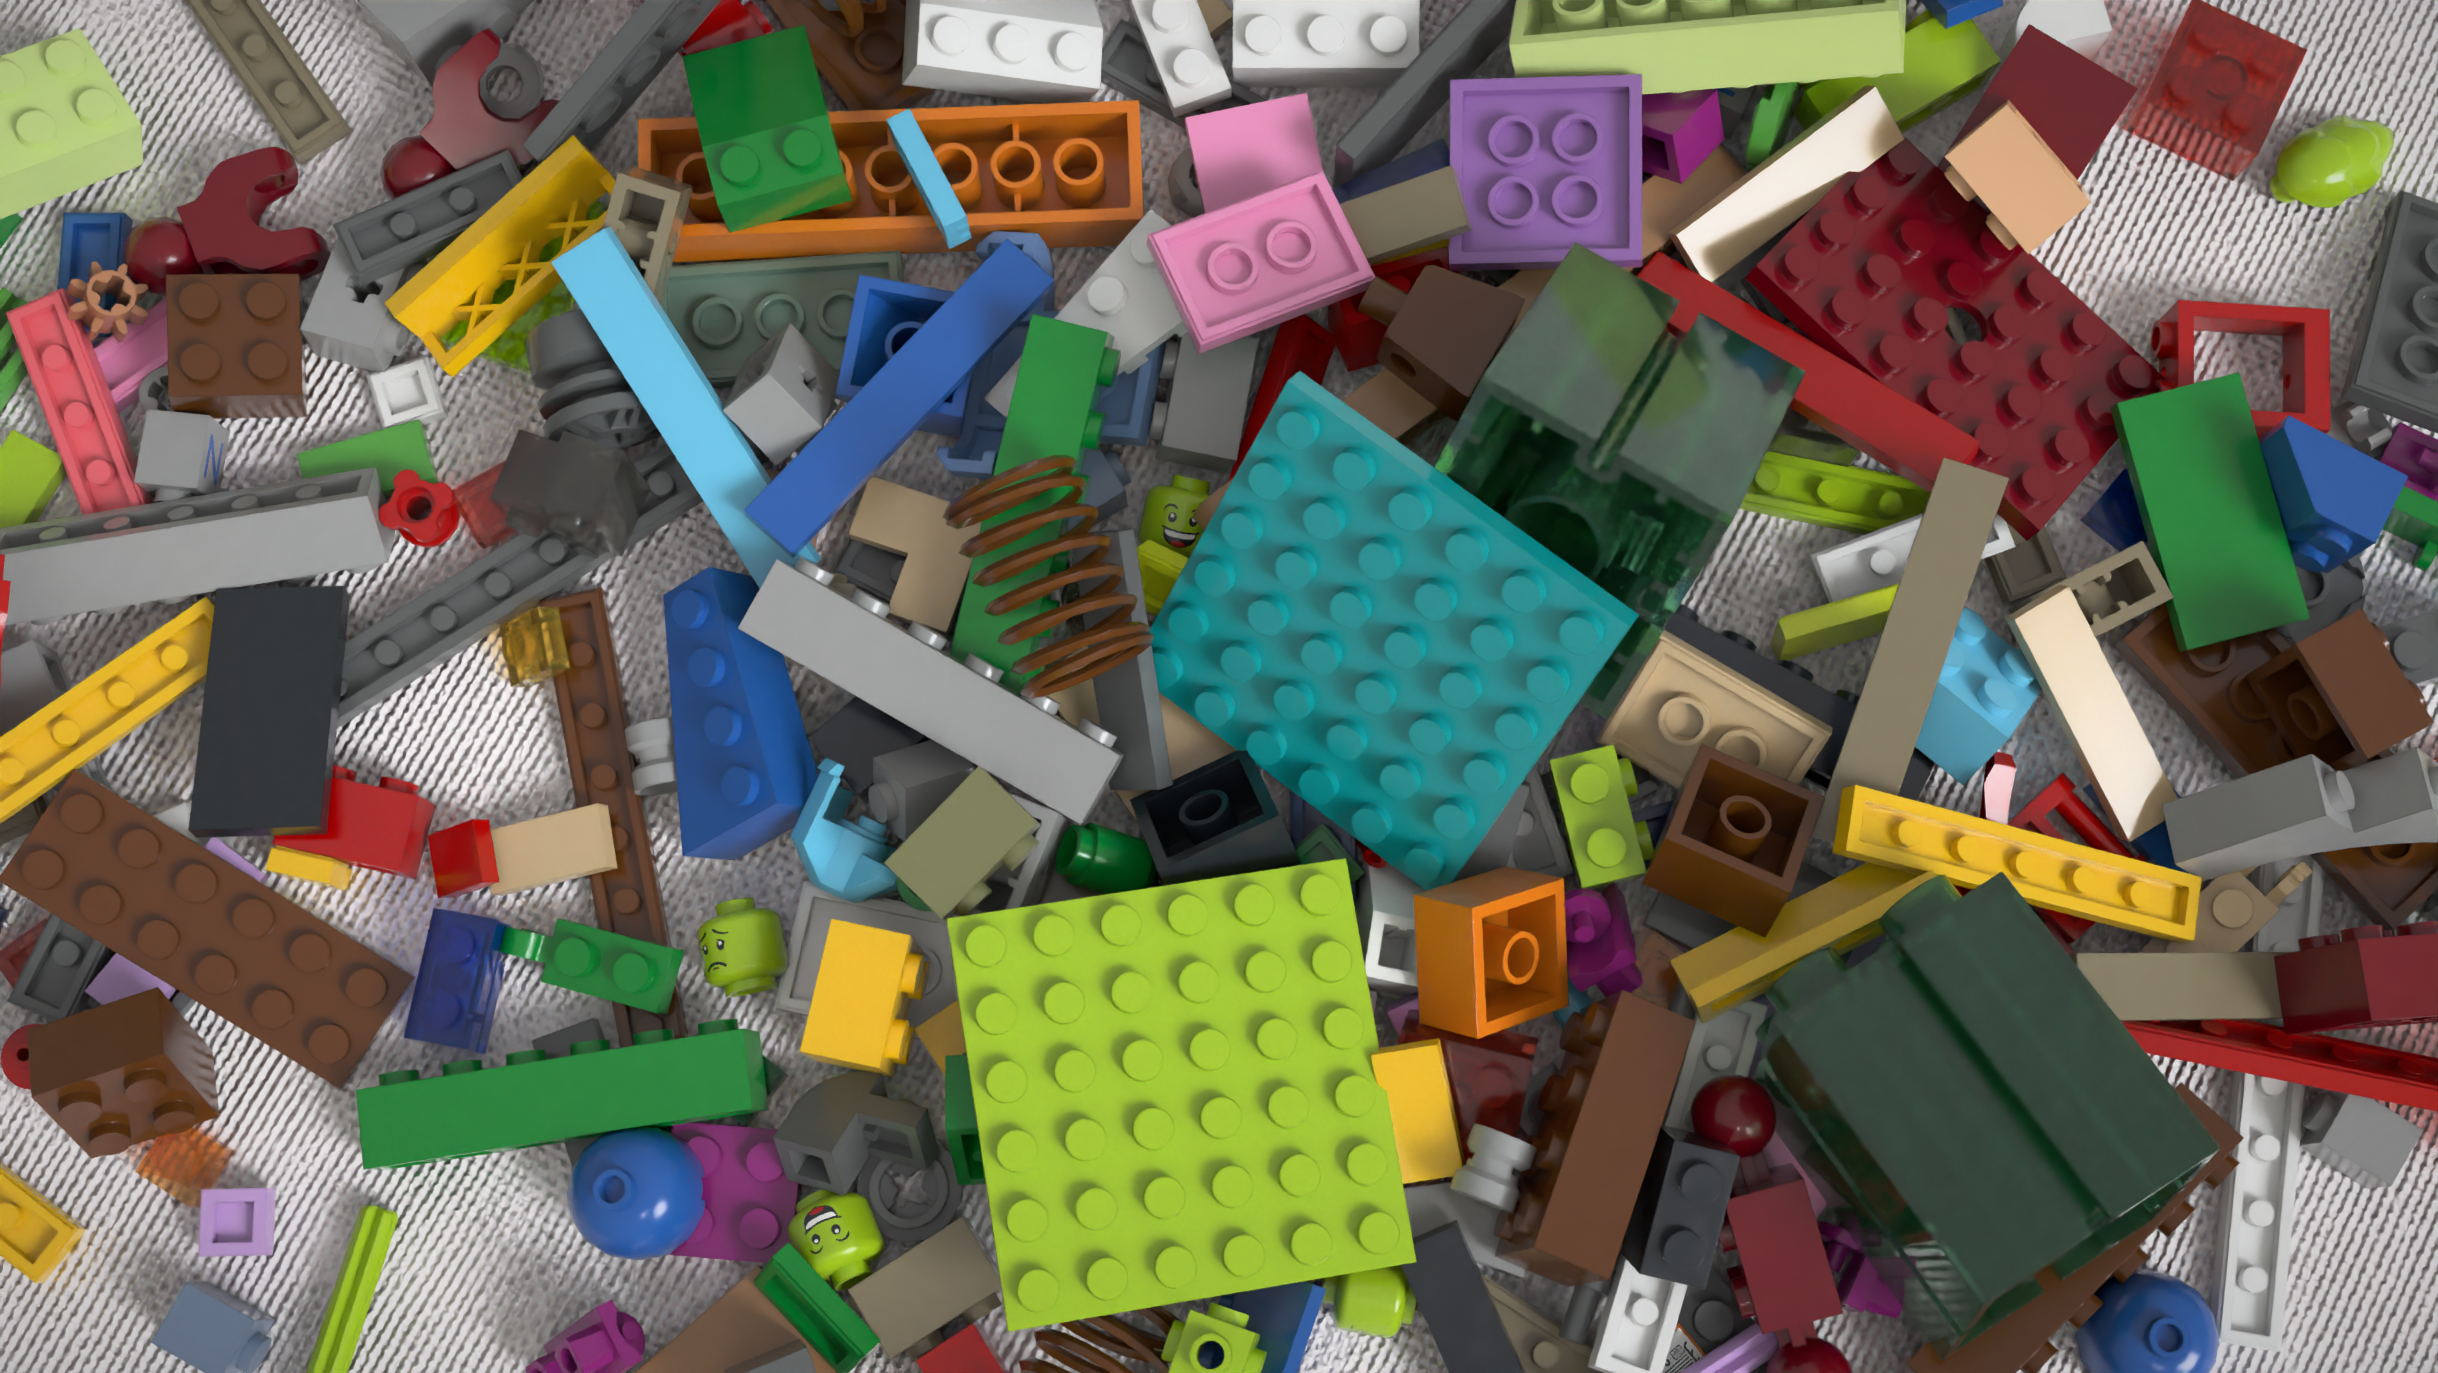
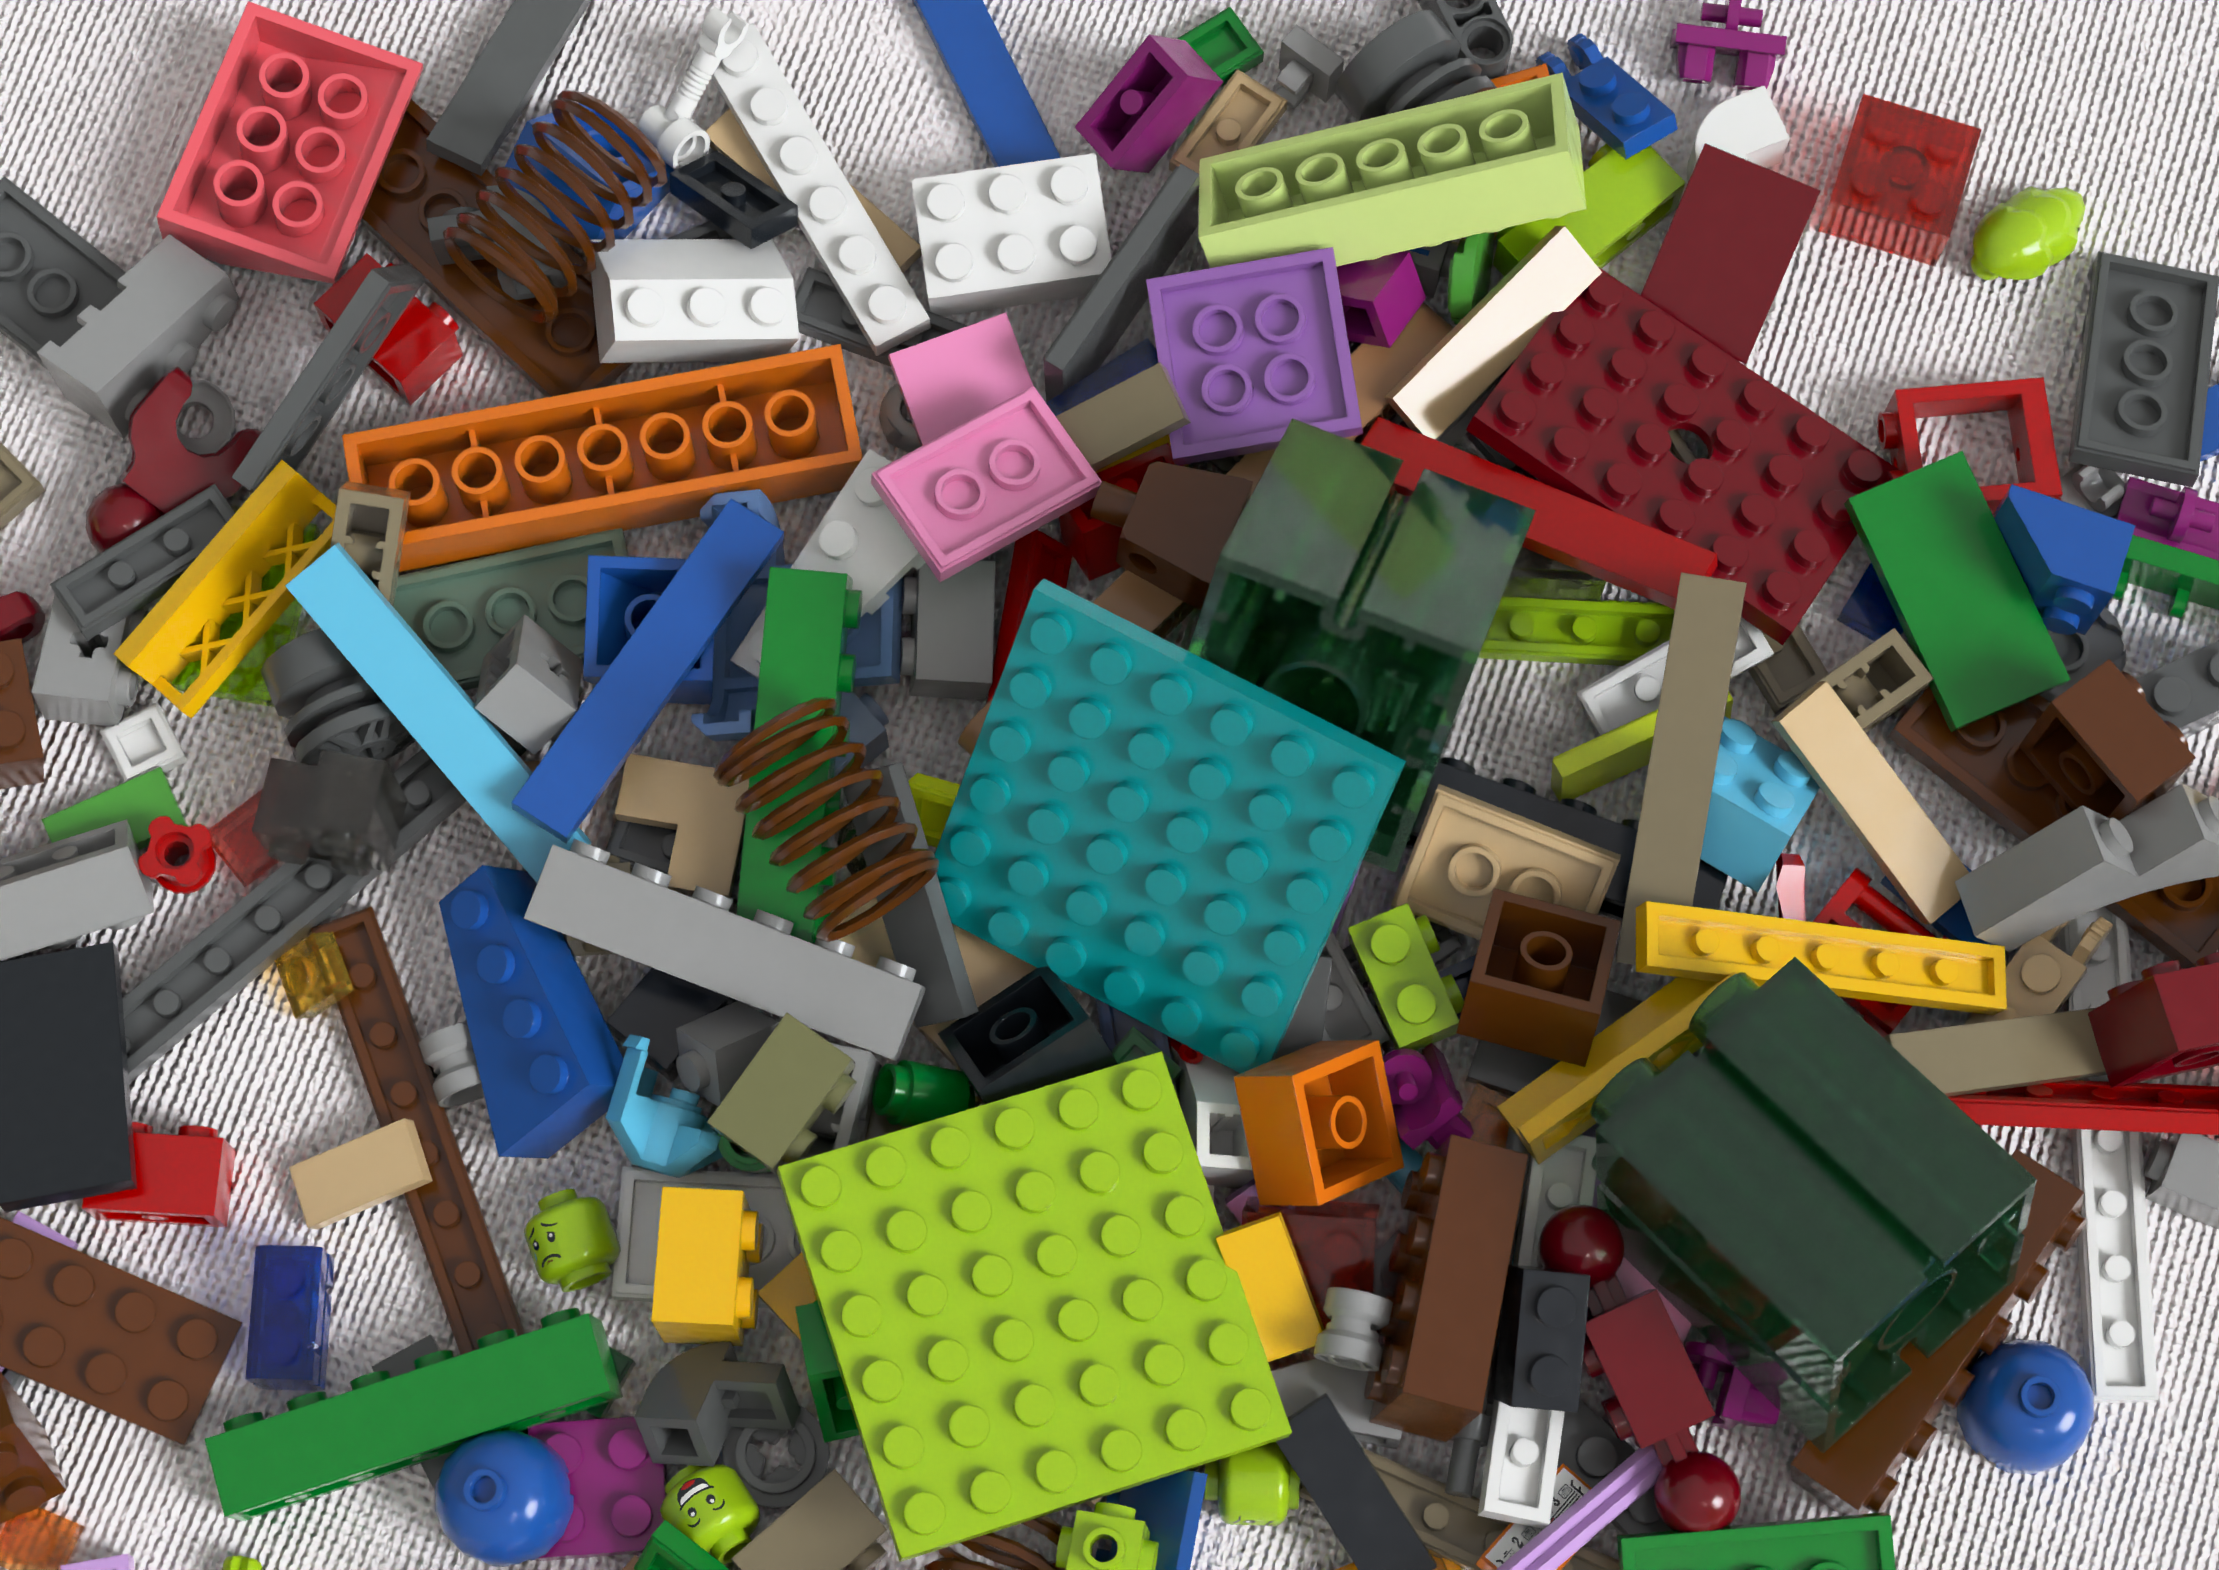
camera: 10 degrees left, 5 degrees down
(309, 868) = (119, 1229): yellow tile -> none
(463, 858) = (274, 1196): red tile -> none
(601, 963) = (431, 1277): green plate -> none
(765, 129) = (474, 425): green slope -> none
(929, 178) = (645, 450): medium azure tile -> none
(1170, 512) = (934, 745): lime head -> none
(2016, 179) = (1714, 294): light nougat brick -> none

